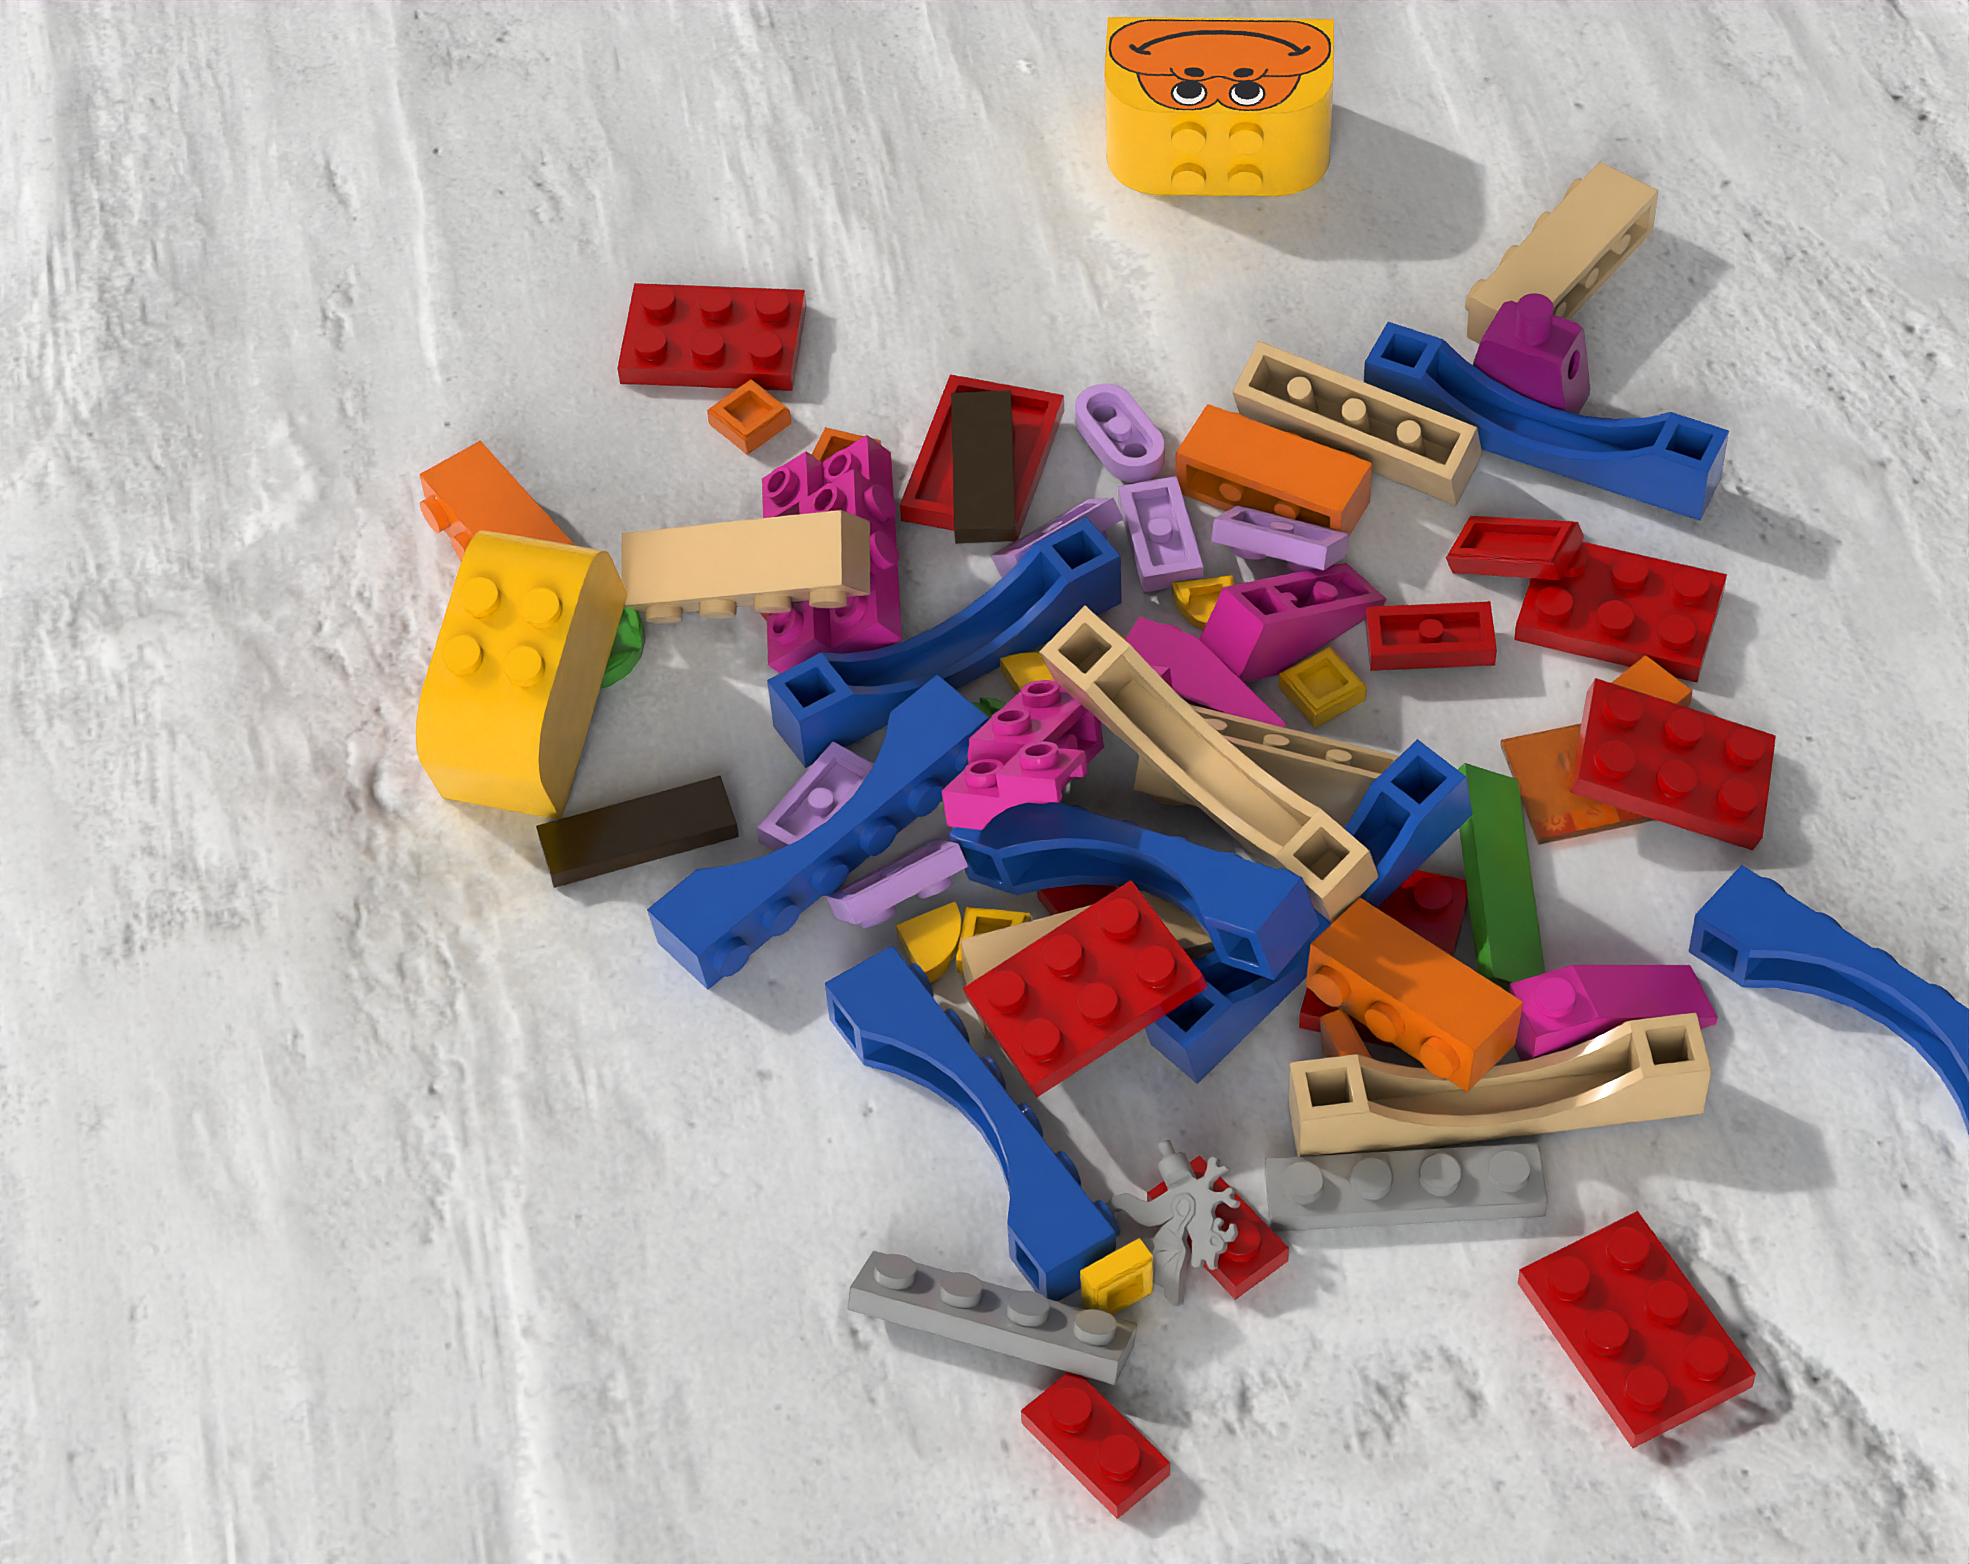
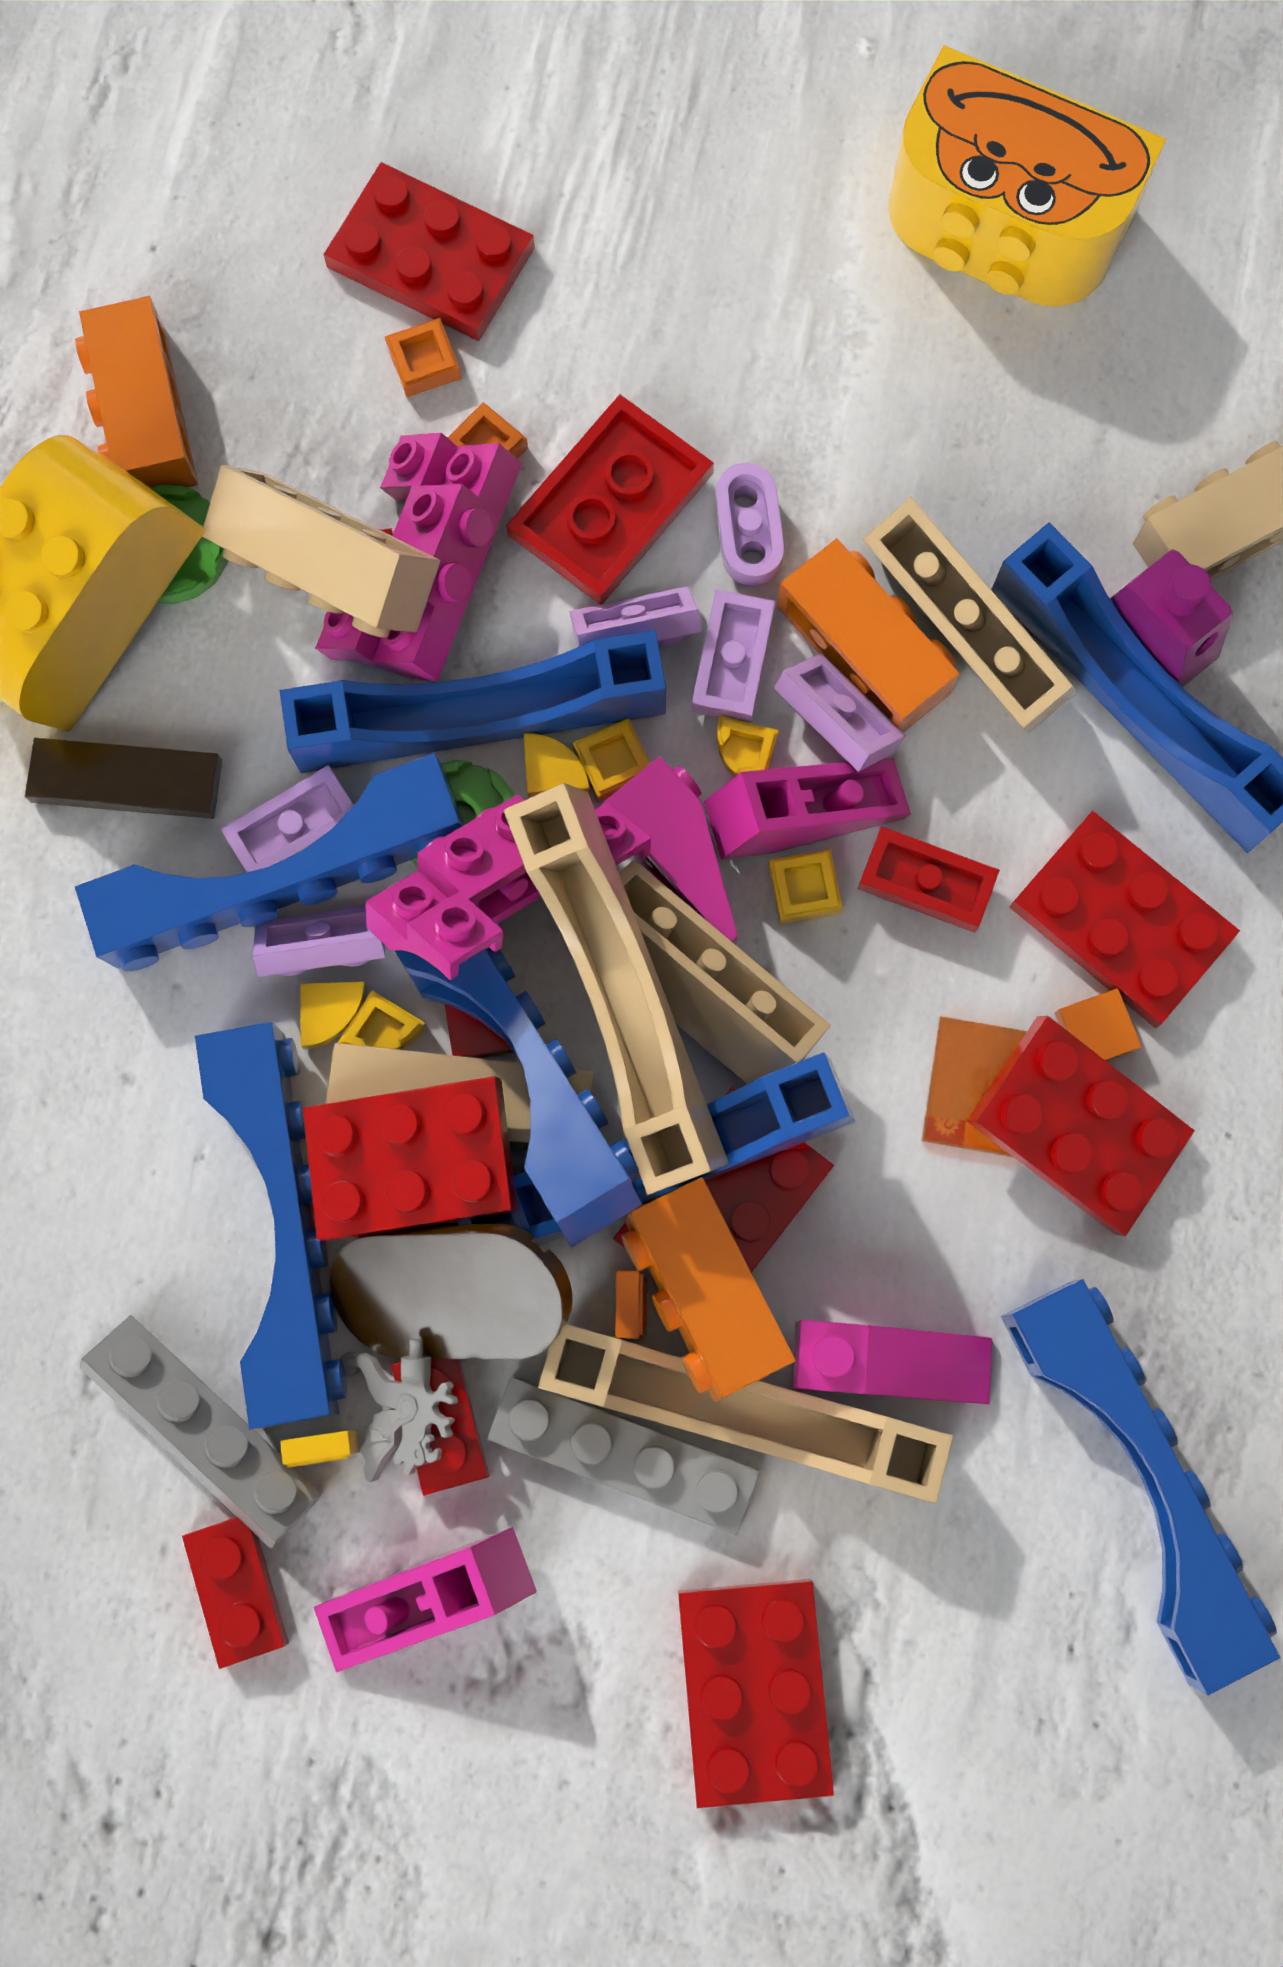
camera: 20 degrees right, 25 degrees up
(983, 467) = (597, 518): dark brown tile -> none
(1176, 1079) = (455, 1287): none -> tile
(1283, 1365) = (426, 1600): none -> dark pink slope
(1499, 880) = (858, 1180): bright green tile -> none
(1515, 547) = (1053, 818): red tile -> none

